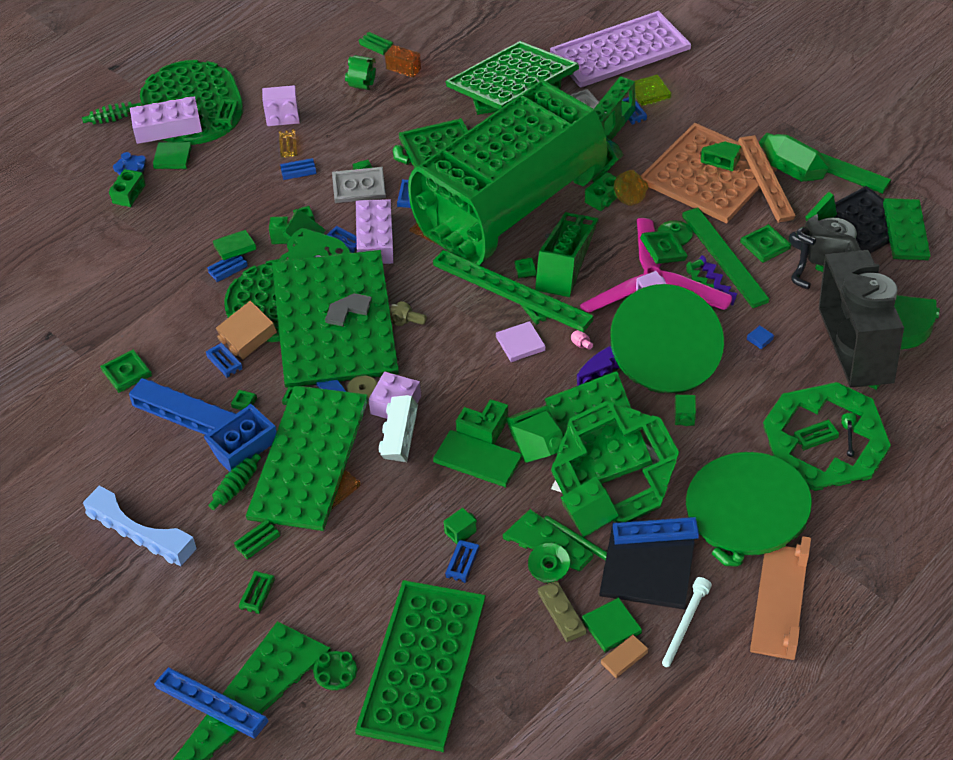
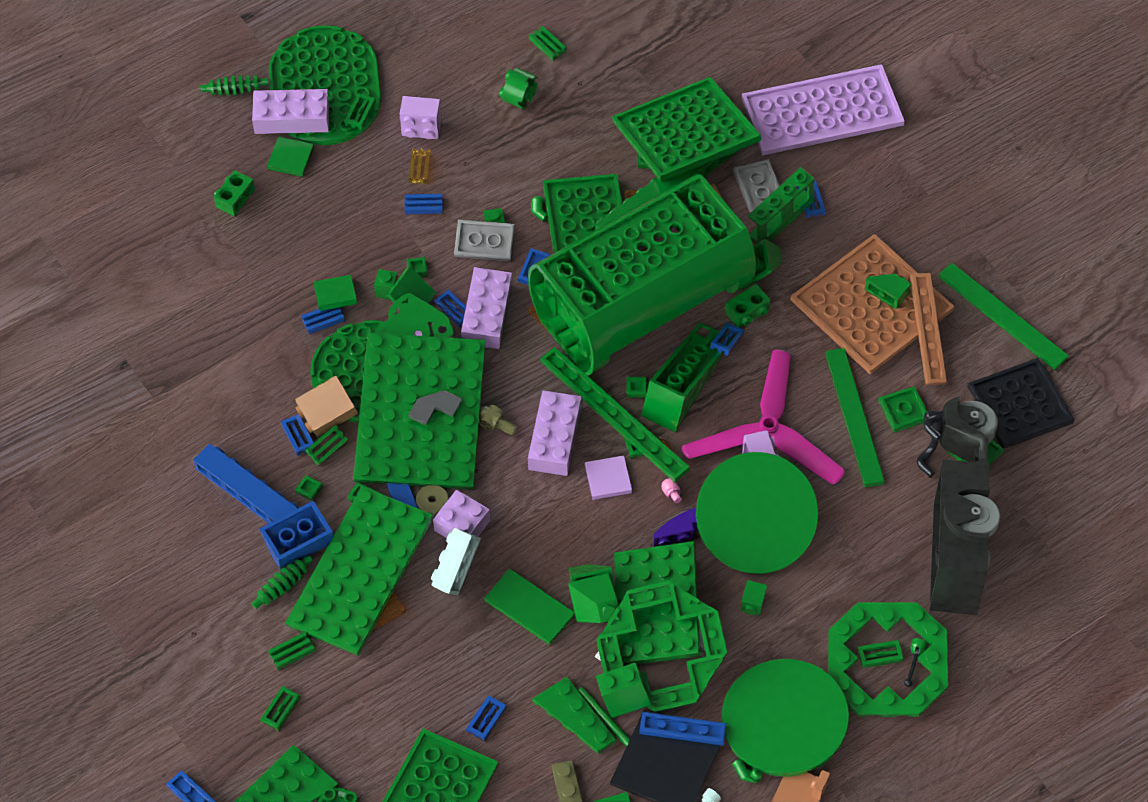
camera: 10 degrees right, 10 degrees up
(125, 371) = (195, 426): green tile -> none
(130, 162) = (242, 160): blue piece -> none
(170, 543) = (206, 638): light blue arch -> none
(261, 352) = (339, 434): none -> green tile
(403, 61) = (571, 78): clear orange brick -> none
(460, 525) = (493, 680): green brick -> none
(462, 314) = (554, 433): none -> lavender brick
(485, 425) = (544, 573): green panel -> none
(548, 554) = (568, 730): green dish -> none
(598, 223) = (722, 347): none -> blue tile
(630, 188) = (776, 309): clear yellow tile -> none
(651, 90) = (839, 174): clear neon green tile -> none
(663, 246) = (790, 393): green plate -> none
(680, 229) = (808, 380): green dish -> none
(690, 269) = (838, 442): piece -> none
(760, 337) = (860, 526): blue tile -> none
(795, 158) = (966, 311): green wedge -> none
(825, 208) = (972, 389): green tile -> none
(906, 229) = (1060, 425): green plate -> none
(917, 318) = (1023, 542): green brick -> none

